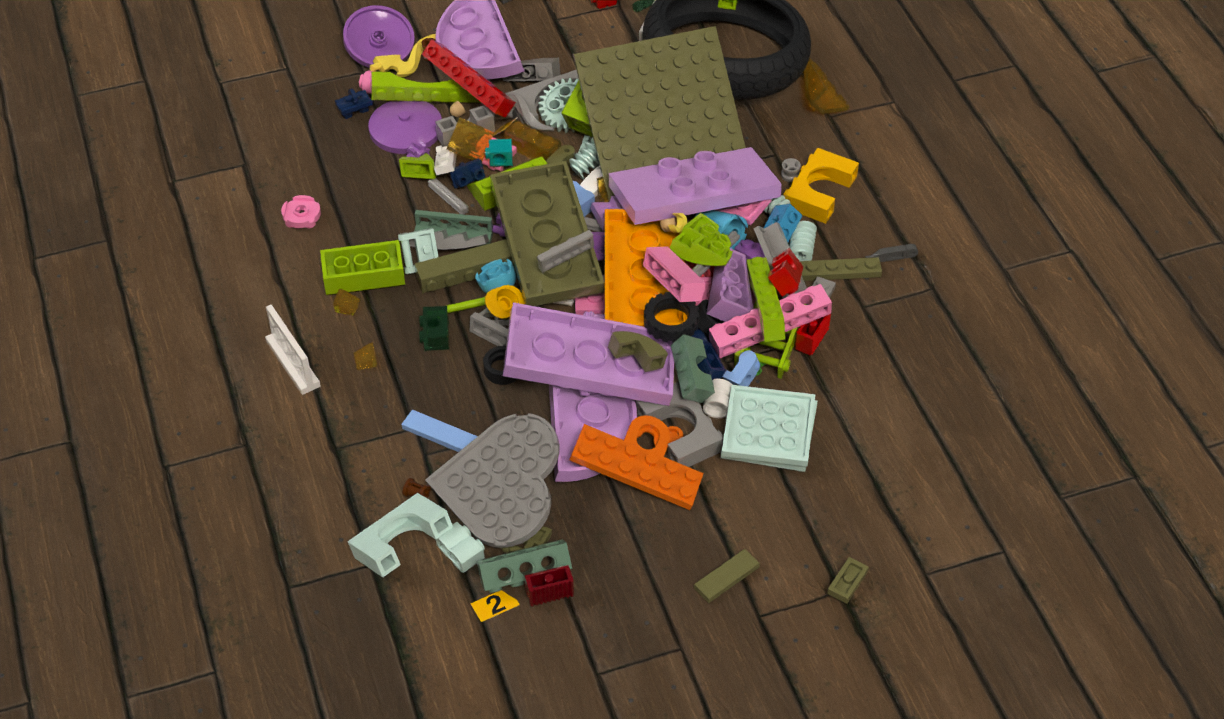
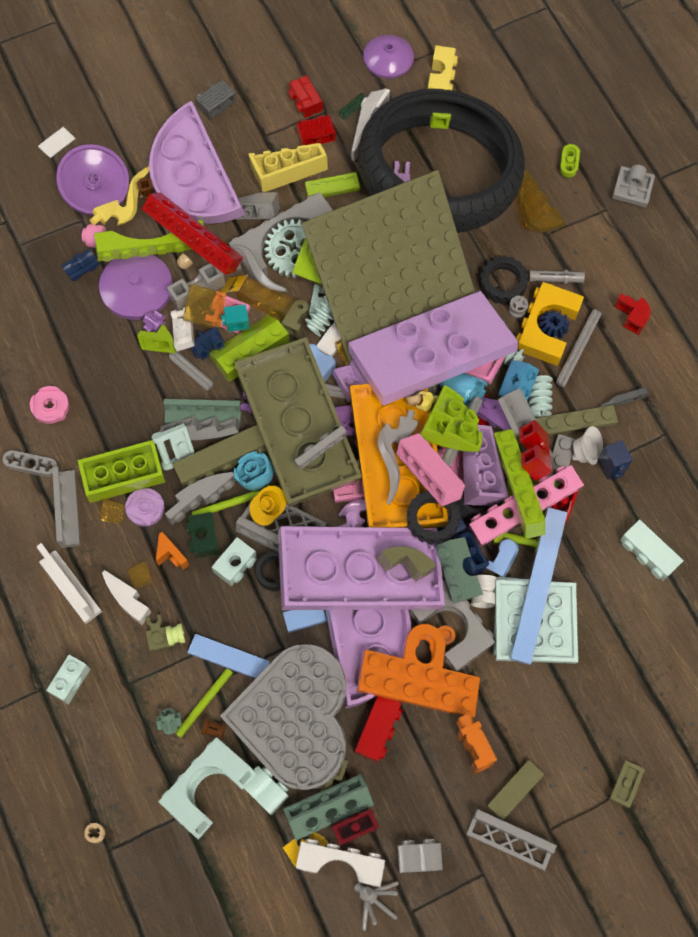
camera: 10 degrees left, 20 degrees up
(274, 574) = (94, 840): none -> tan bush
(275, 433) = (68, 679): none -> light aqua brick
(285, 262) = (24, 457): none -> light grey beam
(301, 295) = (66, 508): none -> light grey fence
(346, 11) = (56, 142): none -> white sticker
(348, 373) = (127, 598): none -> white slope
(371, 478) = (168, 721): none -> sand green gear
(373, 409) = (156, 636): none -> olive plate
(380, 303) = (144, 507): none -> lavender tile
(391, 407) = (175, 634): none -> yellowish green wheel
(398, 338) = (166, 549): none -> orange slope
(410, 470) = (204, 702): none -> lime bar
(441, 291) = (205, 489): none -> light grey slope
(463, 352) = (239, 551): none -> light aqua brick
(503, 609) = (313, 857): none -> white arch
(534, 405) = (302, 619): none -> light blue tile
(555, 649) = (369, 897): none -> light grey plant
(574, 39) = (287, 165): none -> light yellow wedge
(588, 505) = (378, 729): none -> red brick
(606, 17) = (316, 131): none -> red brick
(614, 621) = (419, 857): none -> light grey brick
(633, 254) = (385, 439): none -> light grey piece
(689, 525) = (475, 743): none -> orange hips
(718, 609) = (515, 832): none -> light grey fence
(774, 391) = (538, 587): none -> light blue tile
(778, 134) = (507, 264): none -> black tyre
(826, 184) = (554, 324): none -> dark blue gear
(839, 149) = (557, 276): none -> light grey pin
(847, 287) = (588, 447): none -> white piece
(849, 209) = (578, 348): none -> light grey axle
(861, 58) = (569, 162): none -> lime plate
(872, 297) = (615, 460): none -> dark blue brick
(902, 380) = (650, 550): none -> light aqua brick
(911, 183) = (638, 312): none -> red brick
(925, 81) = (634, 185): none -> light grey plate

